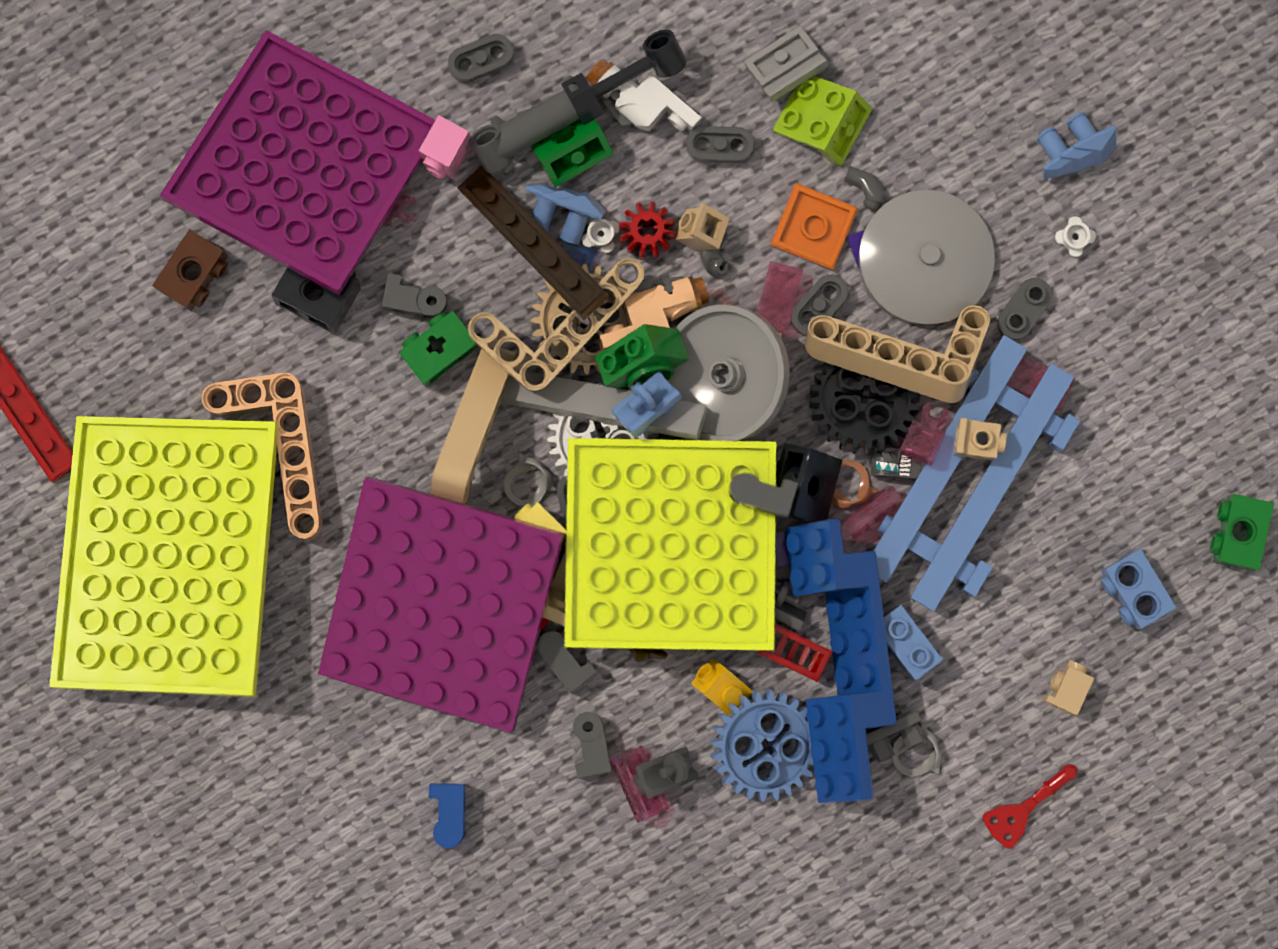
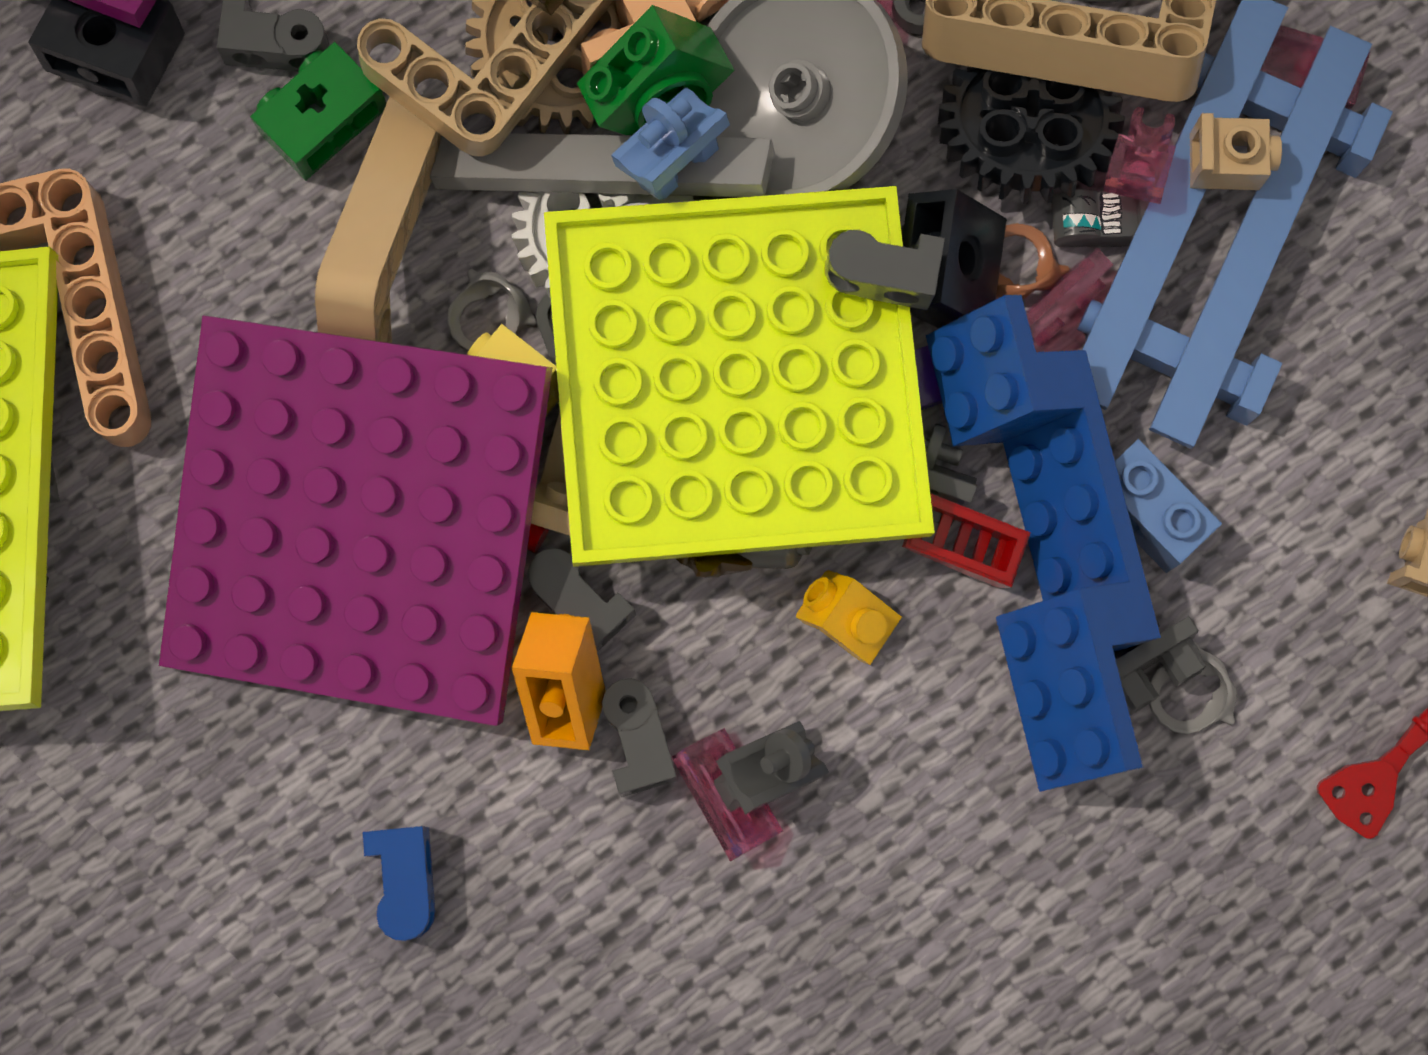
camera: 10 degrees left, 5 degrees down
(550, 710) = (559, 680): none -> light orange brick
(746, 721) = (900, 666): medium blue gear -> none

